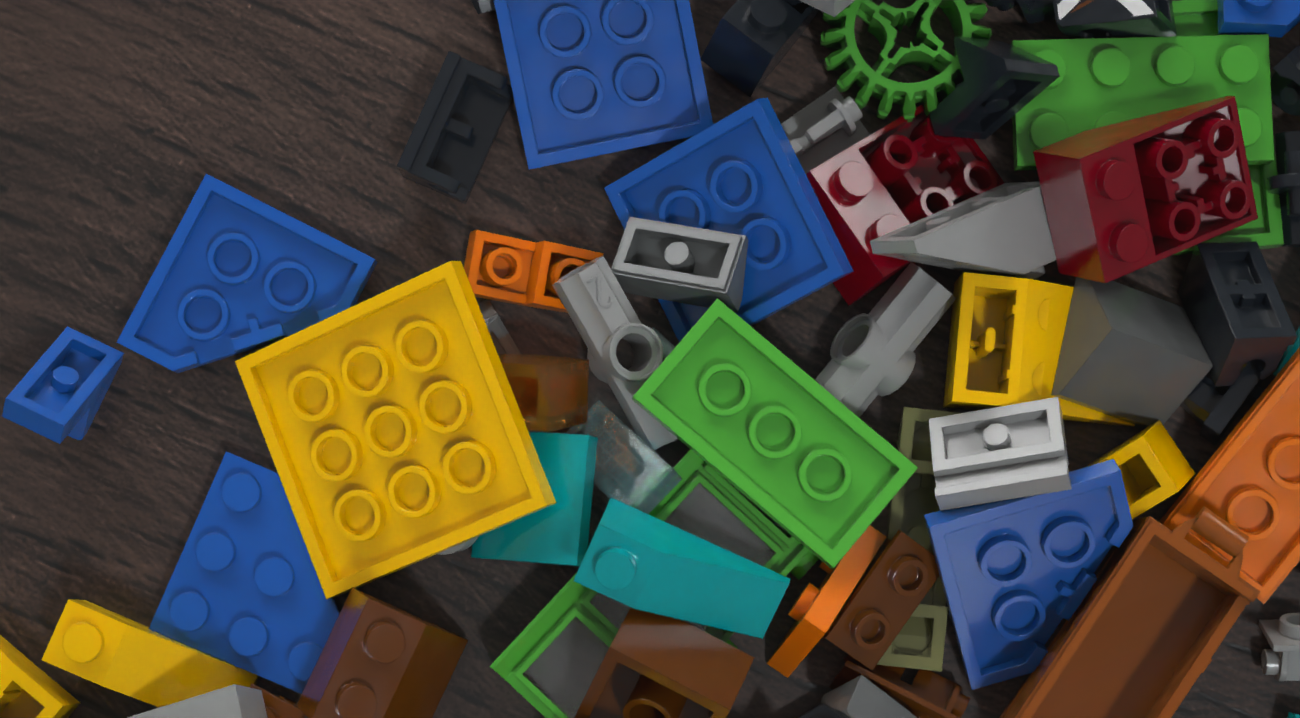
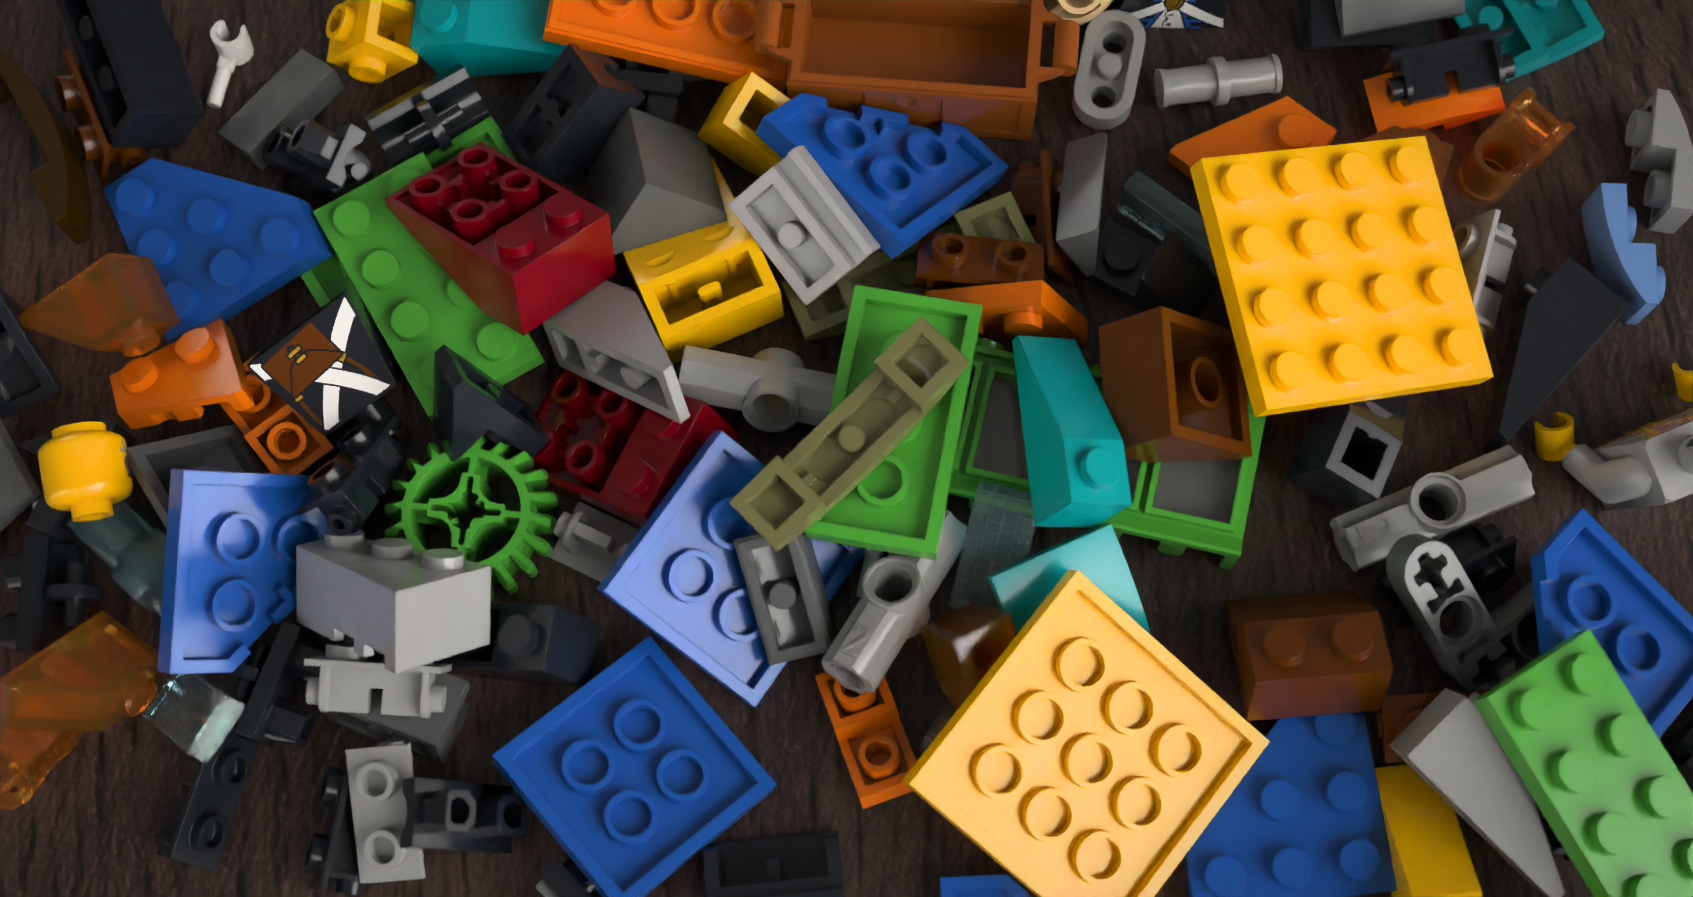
camera: 115 degrees left, 10 degrees down
(771, 377) = (853, 437): none -> olive slope

